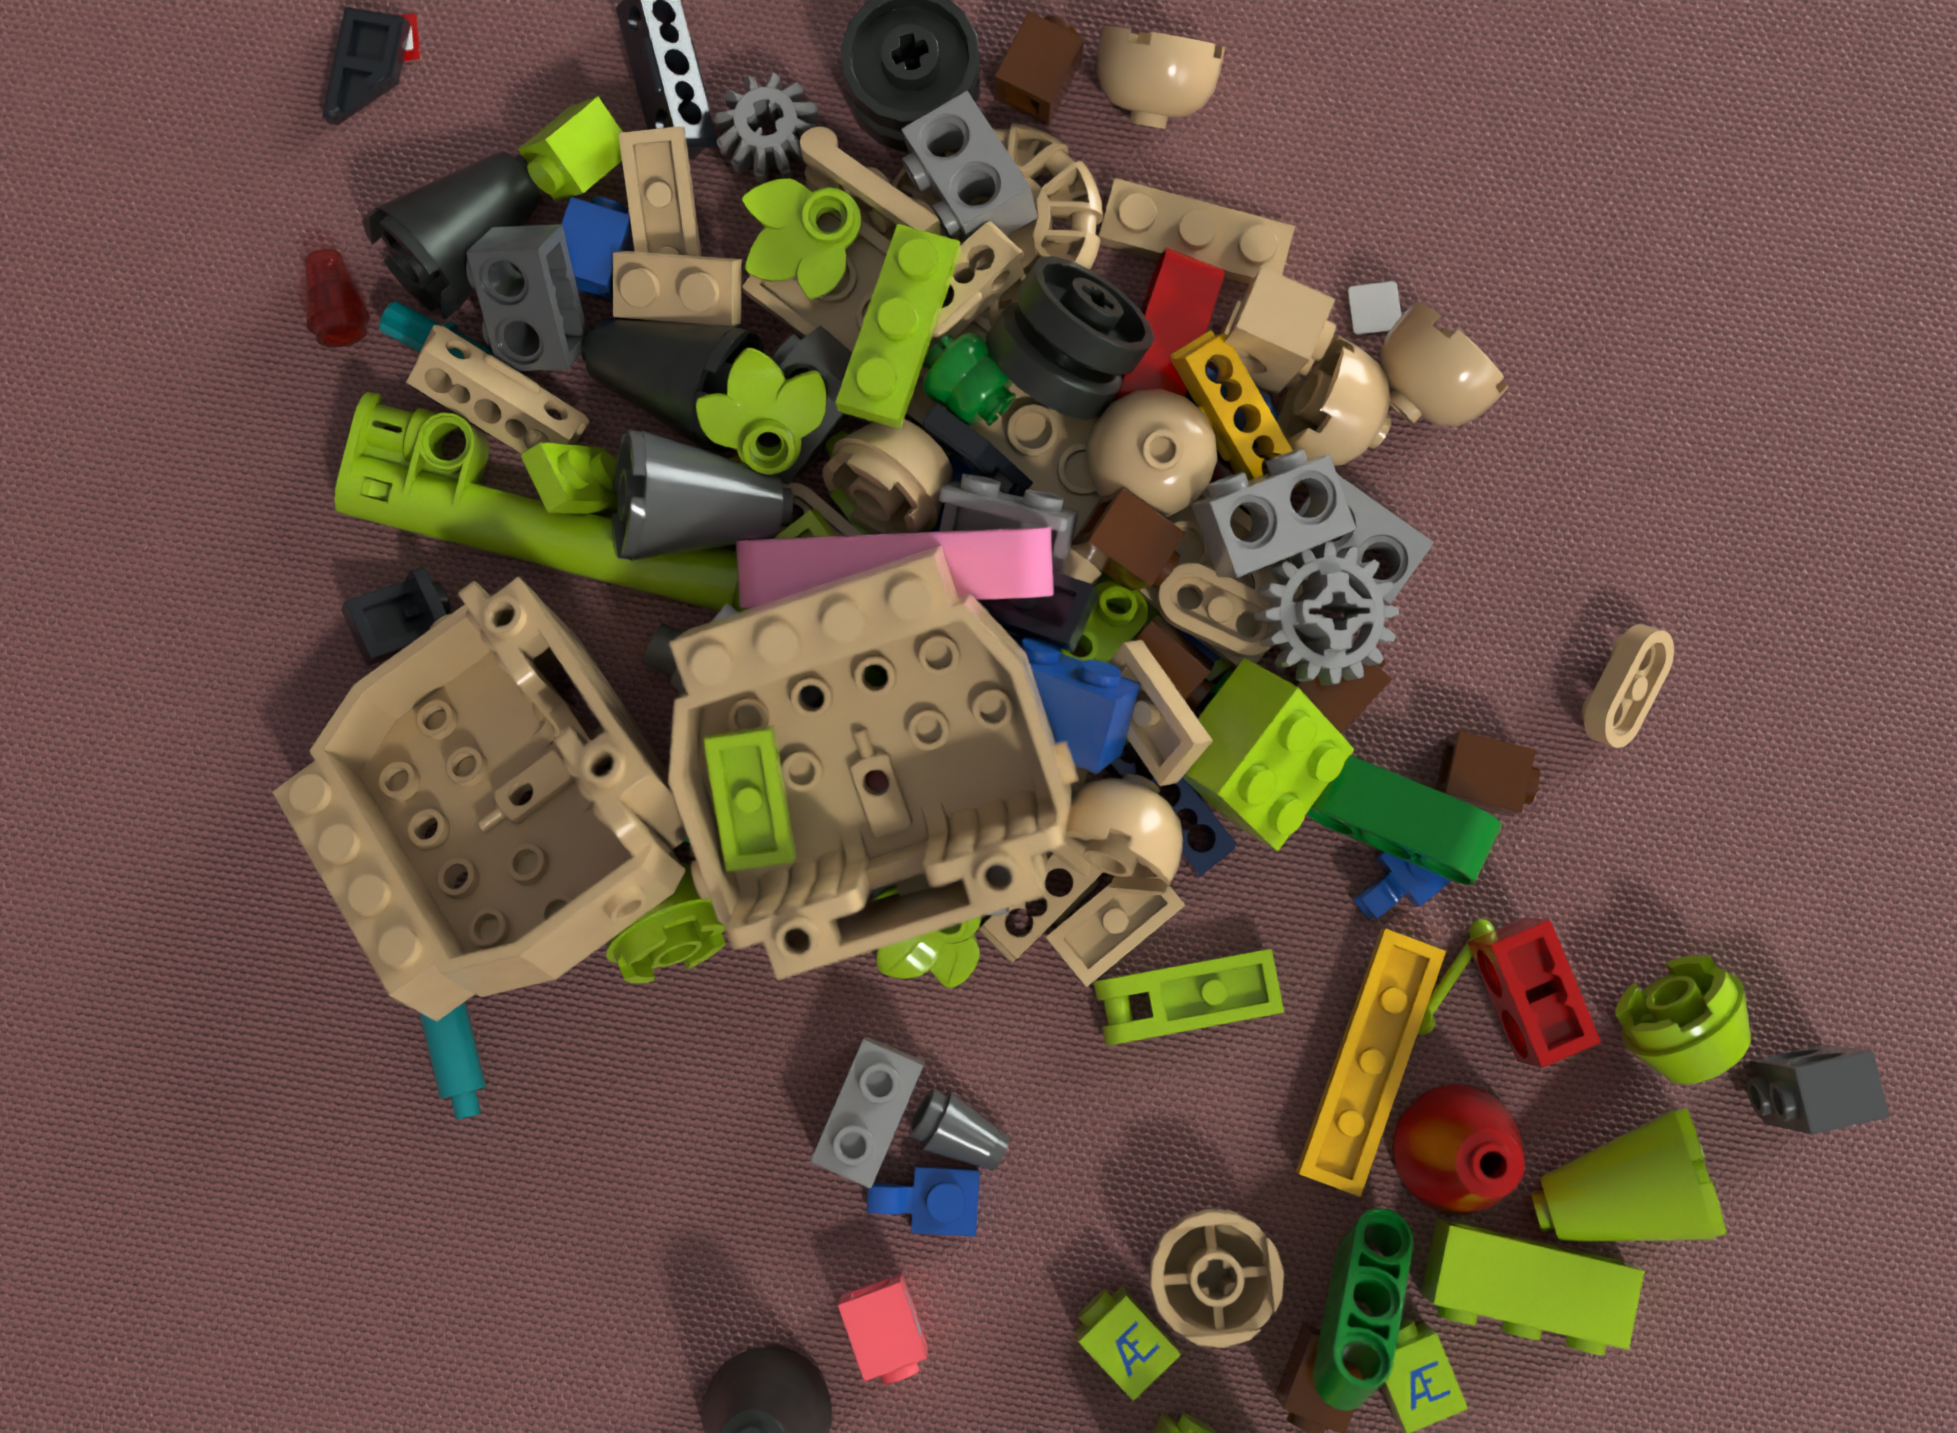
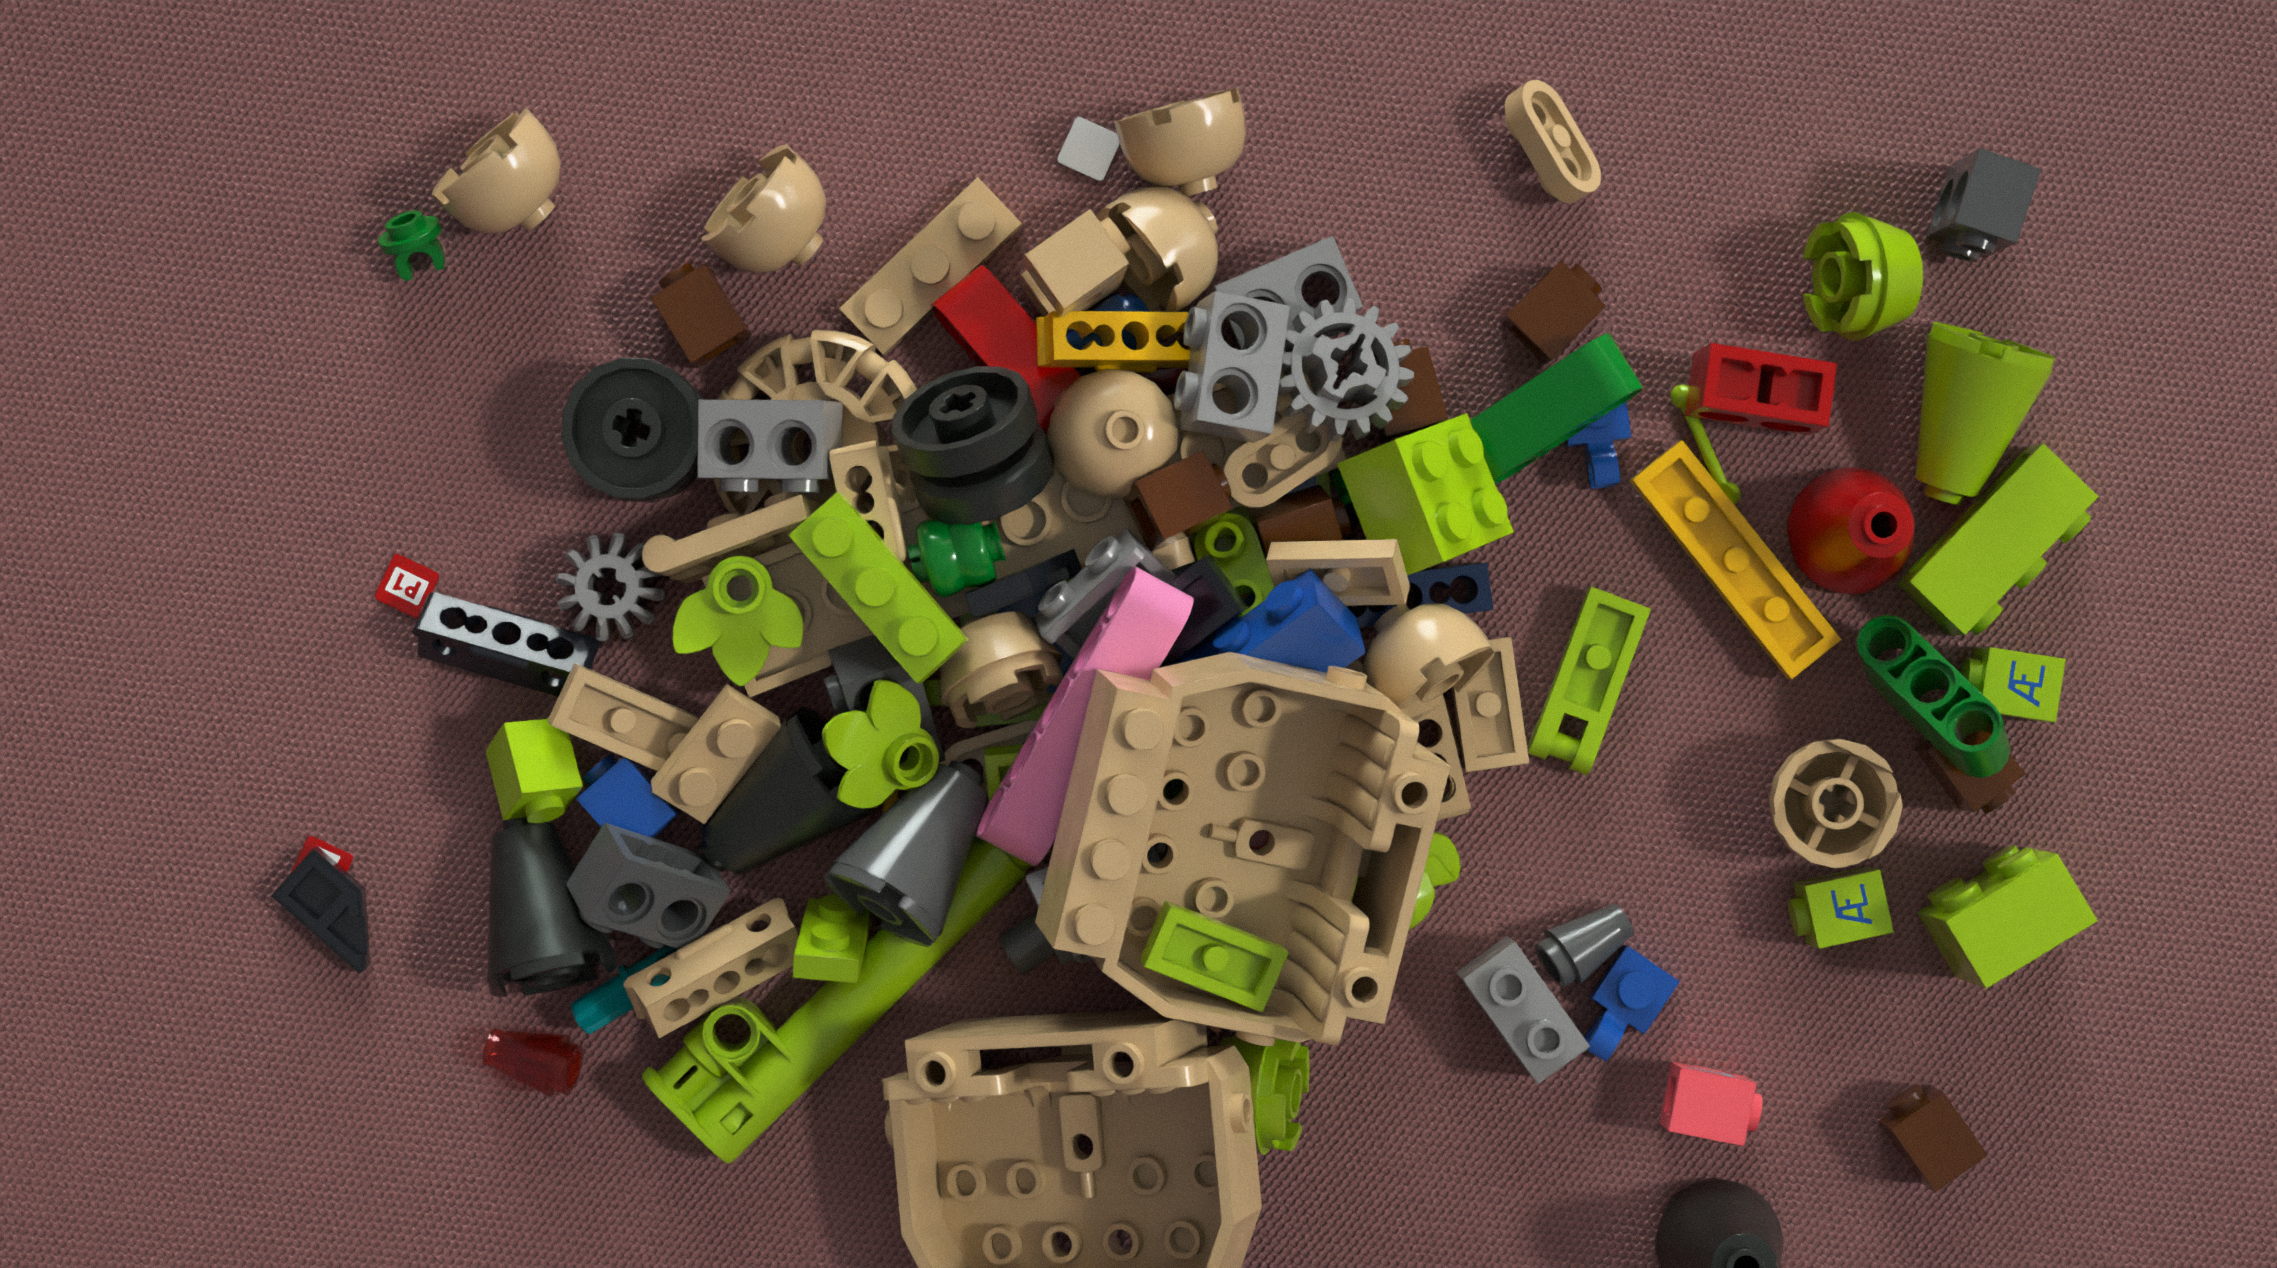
camera: 60 degrees left, 5 degrees up
(395, 615) = (855, 1164): black bracket -> none

